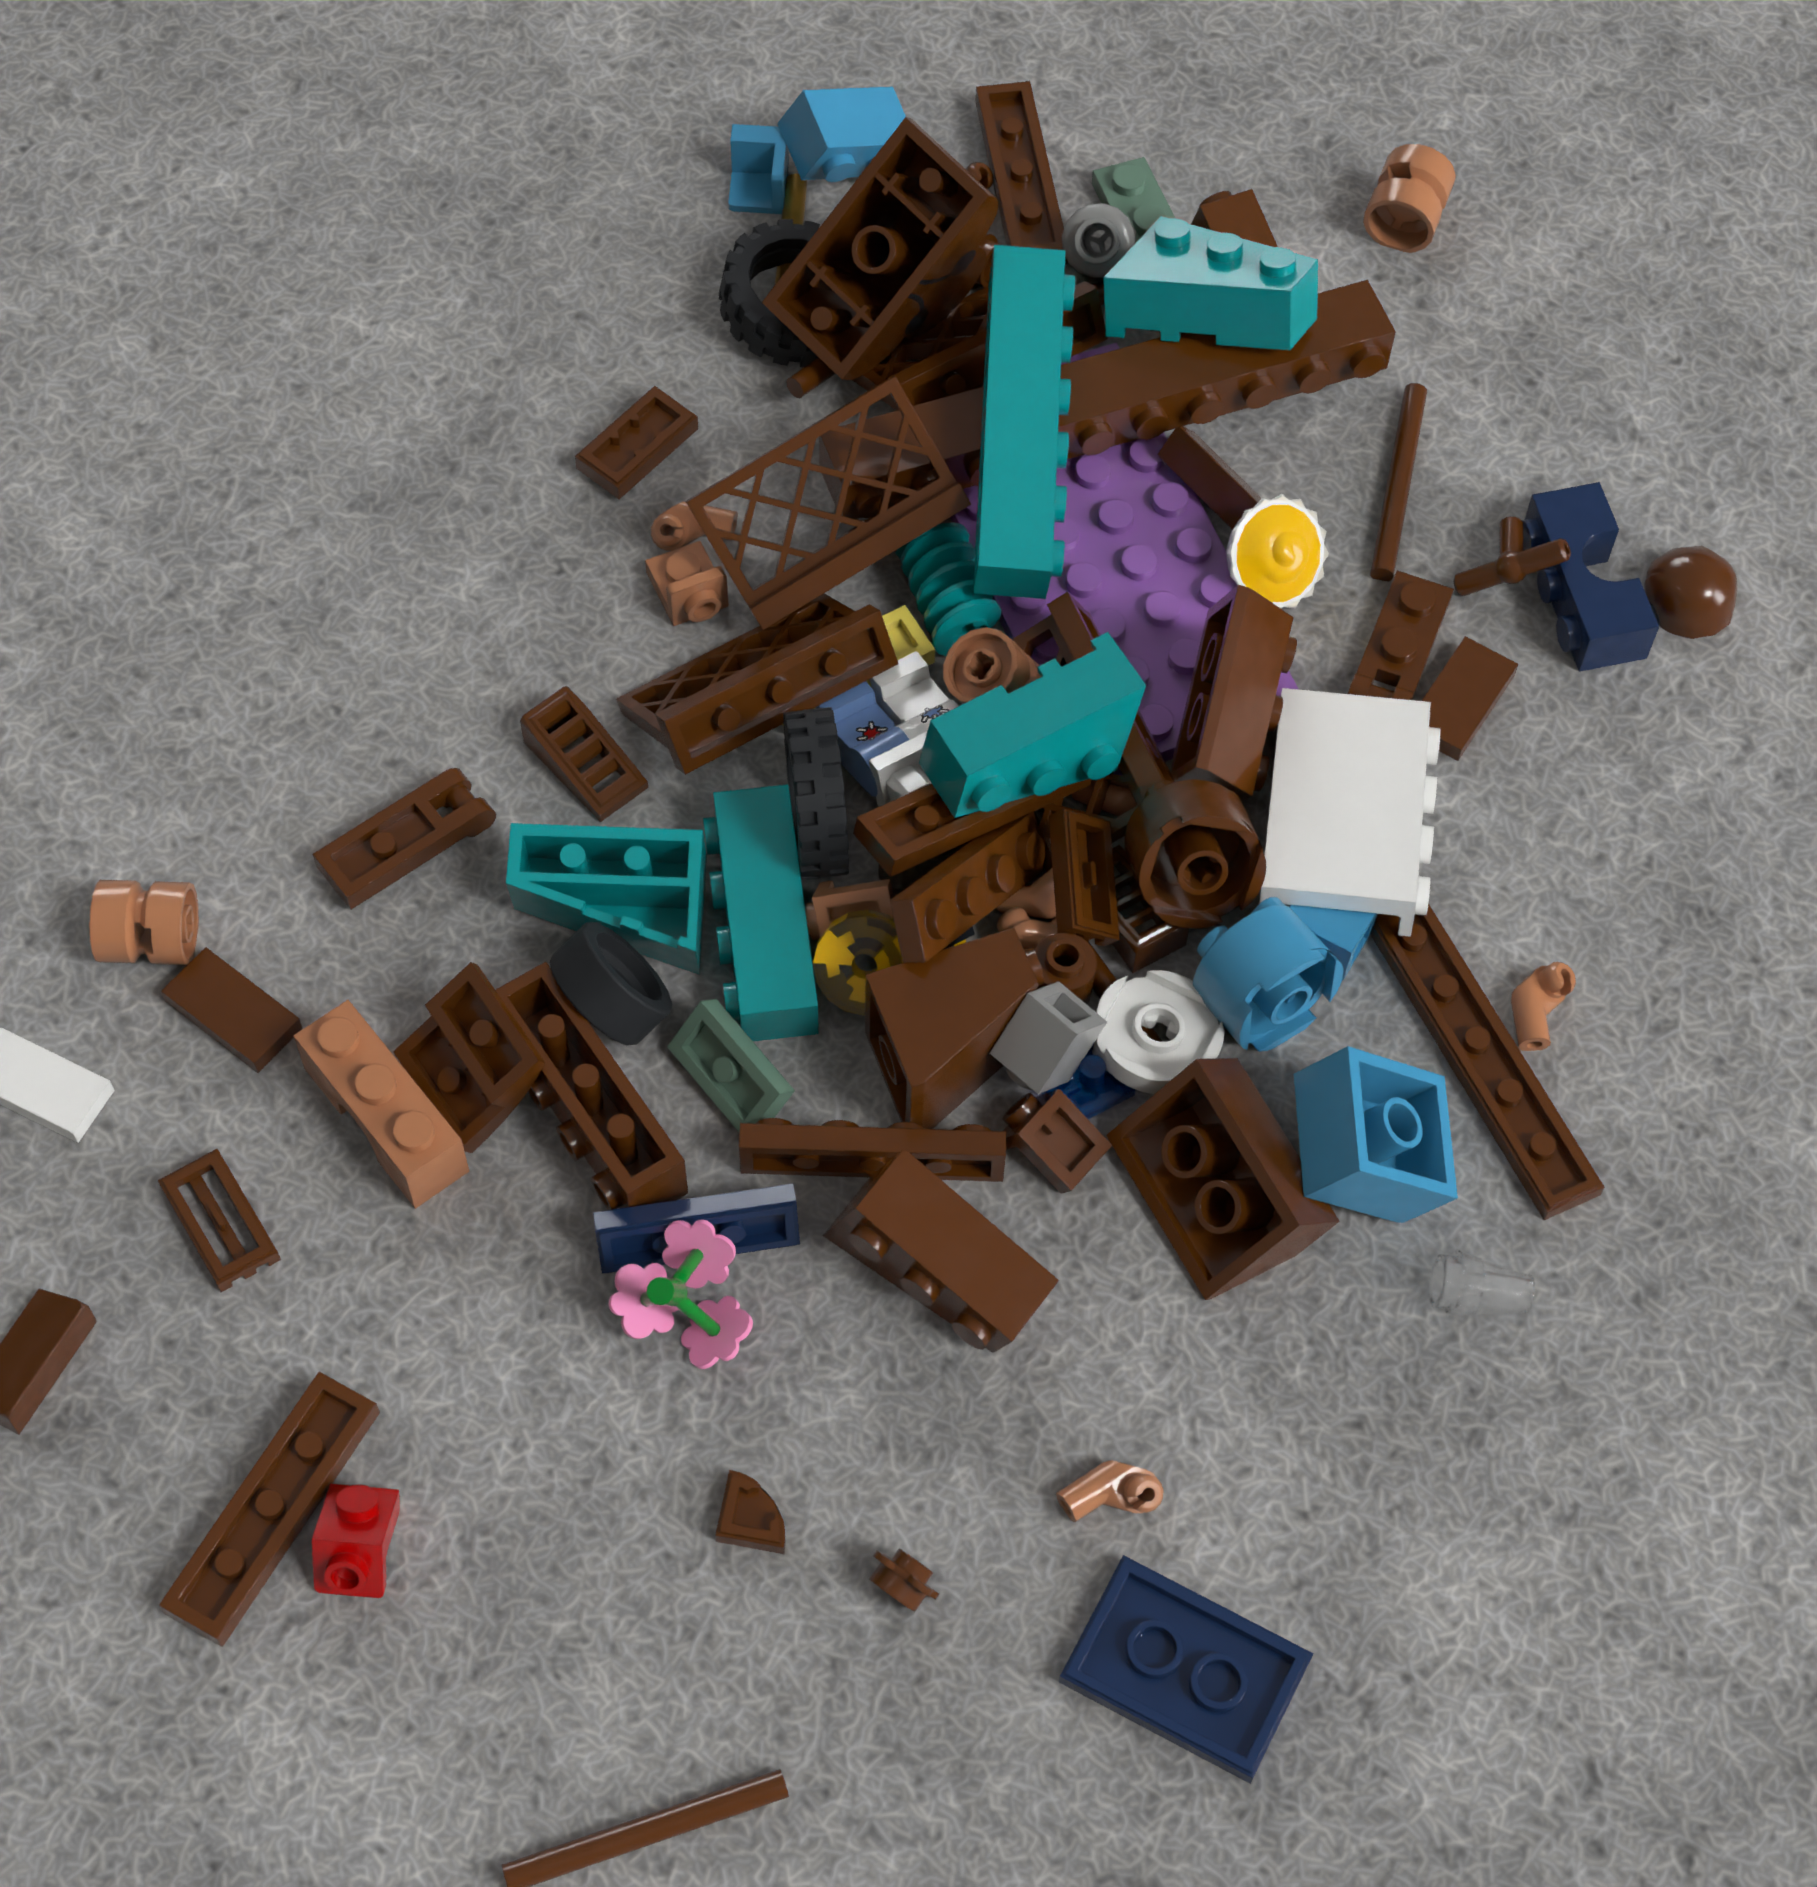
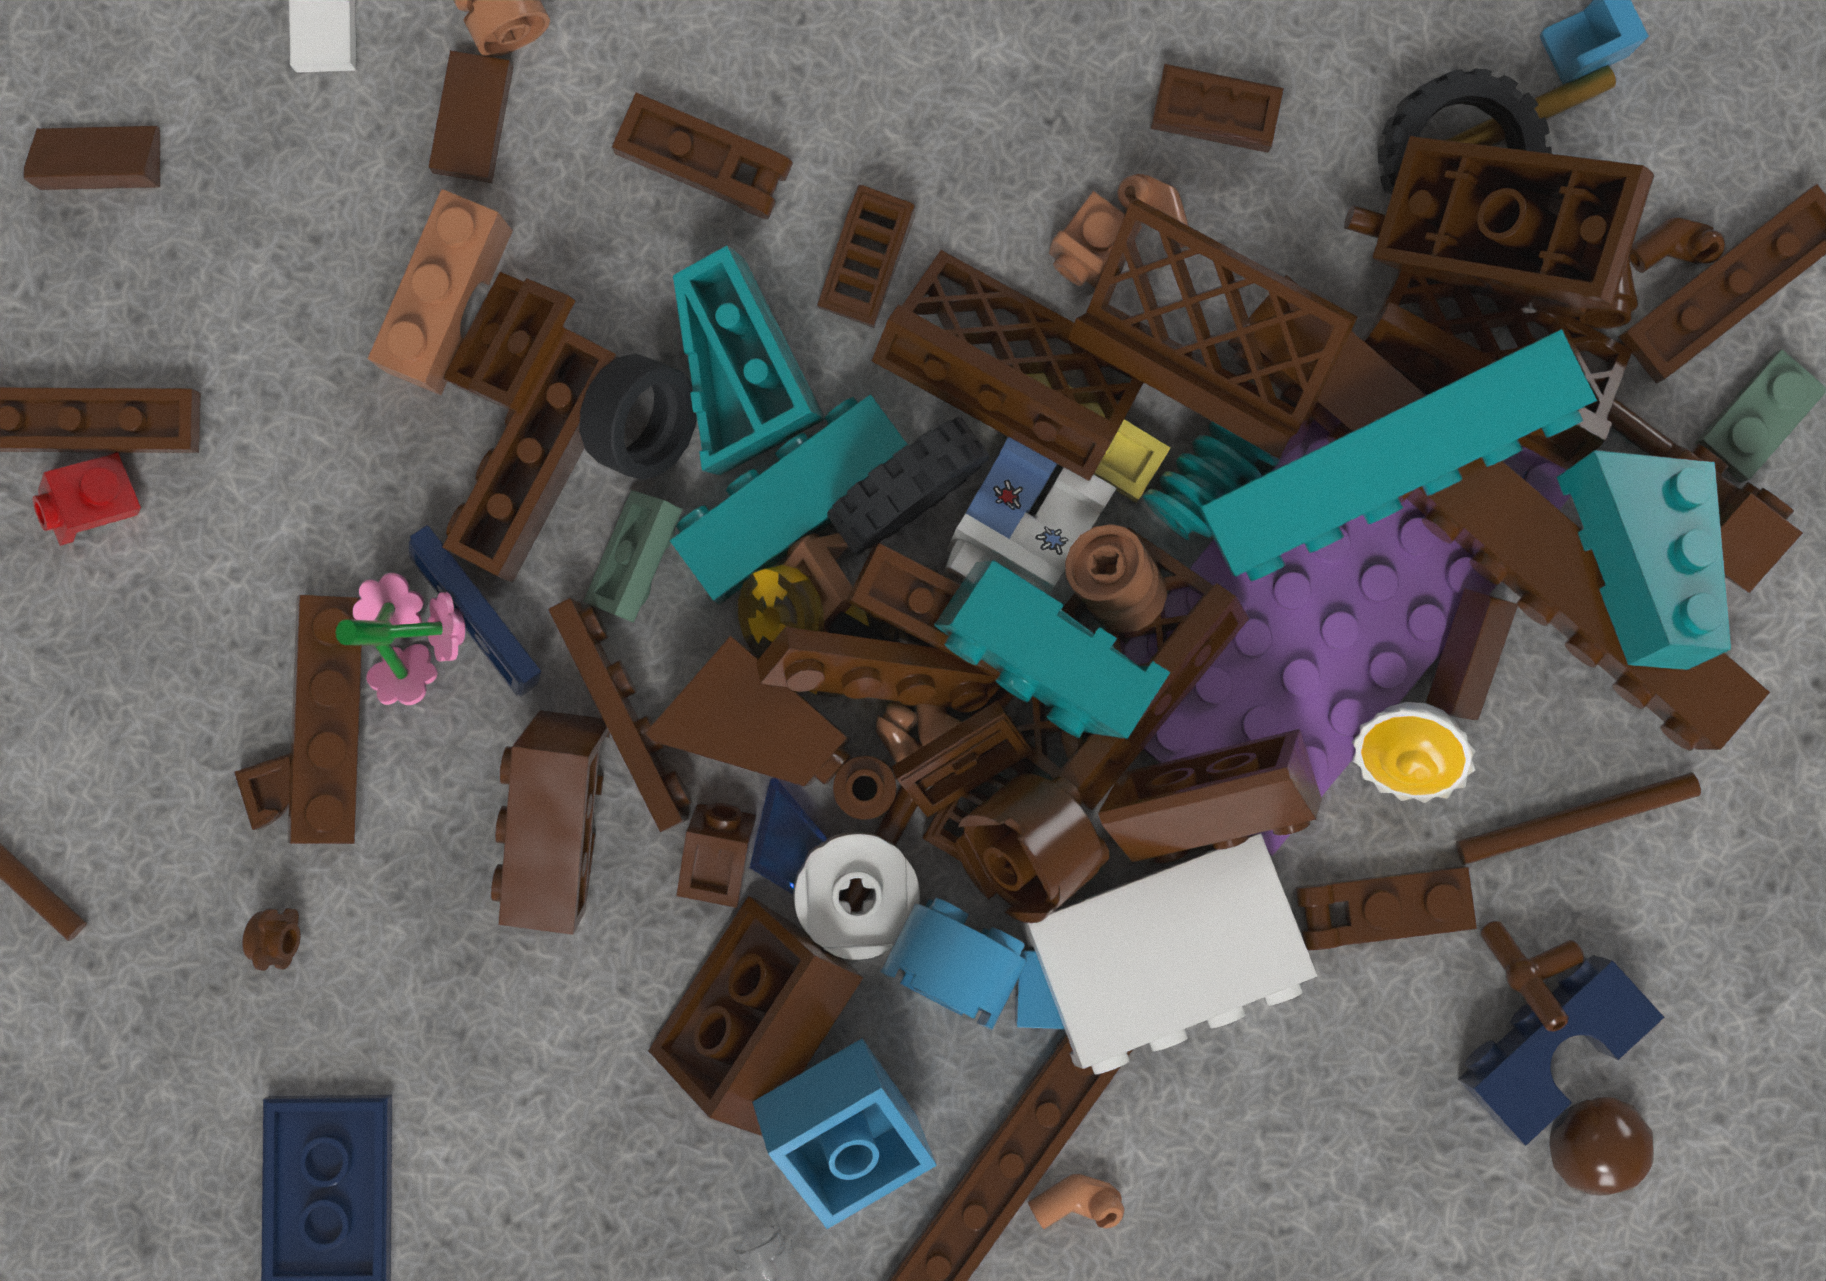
camera: 65 degrees right, 25 degrees up
(244, 1263) = (307, 237): reddish brown tile -> none
(717, 1422) = (324, 724): none -> reddish brown plate
(839, 130) = (1674, 97): dark azure brick -> none
(1047, 1038) = (783, 813): light grey brick -> none
(1078, 238) = (1672, 414): light grey head -> none
(1114, 1486) = (445, 1061): nougat arm -> none
(1467, 694) = (1366, 990): reddish brown tile -> none

